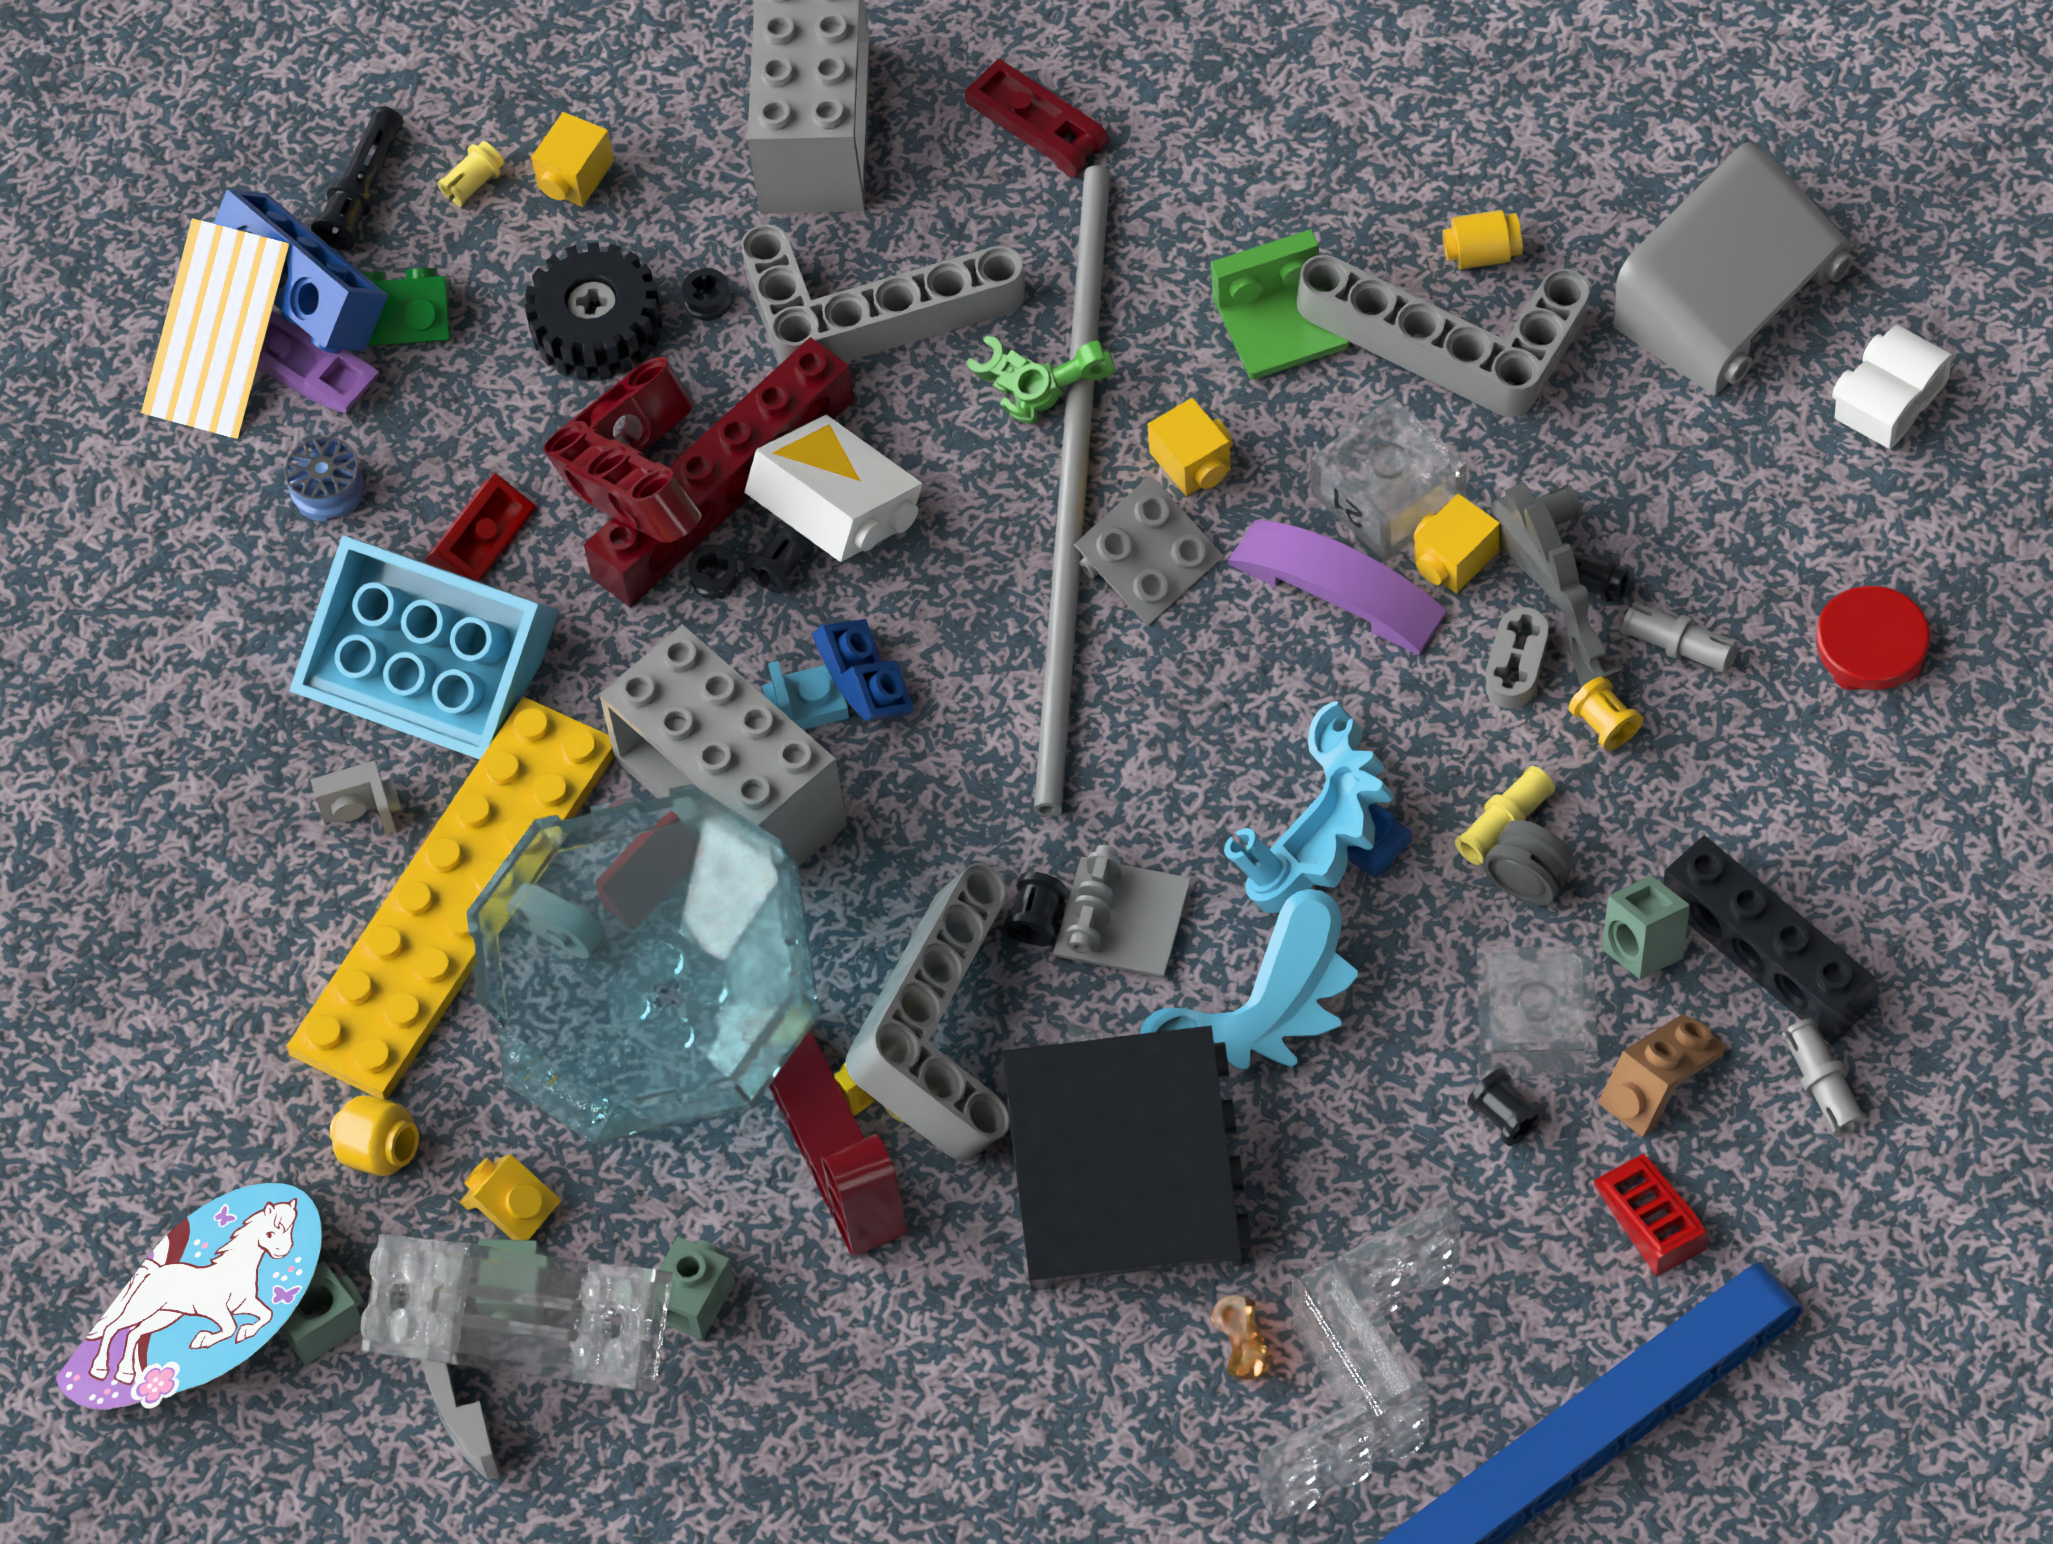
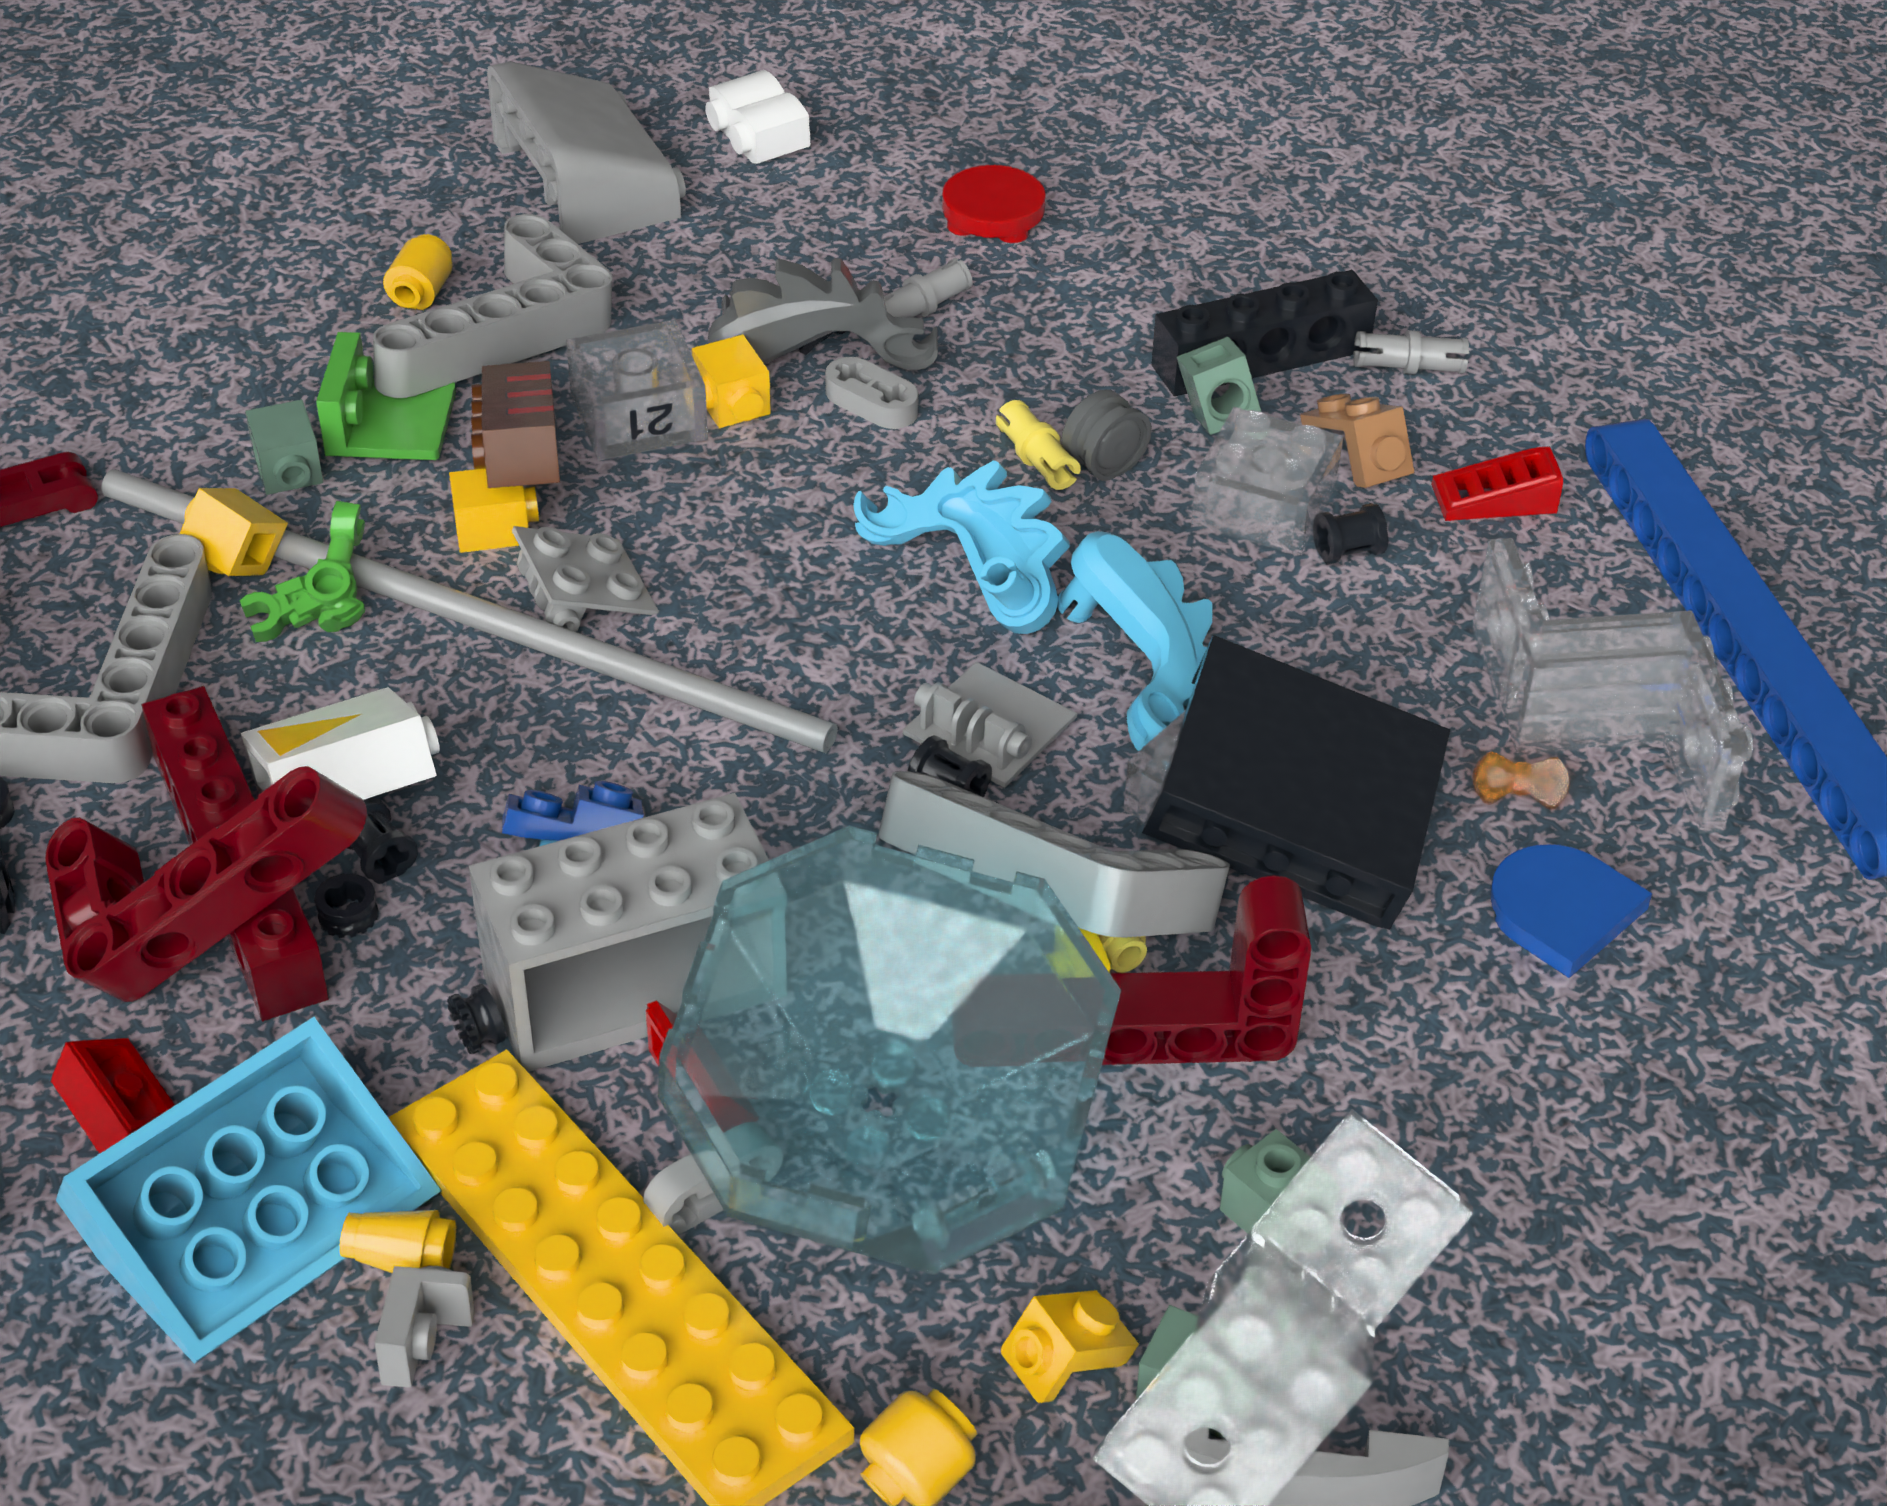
camera: 75 degrees left, 15 degrees down
(416, 758) = (399, 1239): none -> yellow cone
(1054, 287) = (234, 531): none -> yellow brick
(1110, 1409) = (1563, 904): none -> blue tile
(1183, 266) = (284, 447): none -> sand green brick
(1268, 415) = (515, 425): none -> reddish brown brick
(1341, 577) = (698, 462): medium lavender slope -> none
(1605, 713) = (971, 355): yellow bush -> none

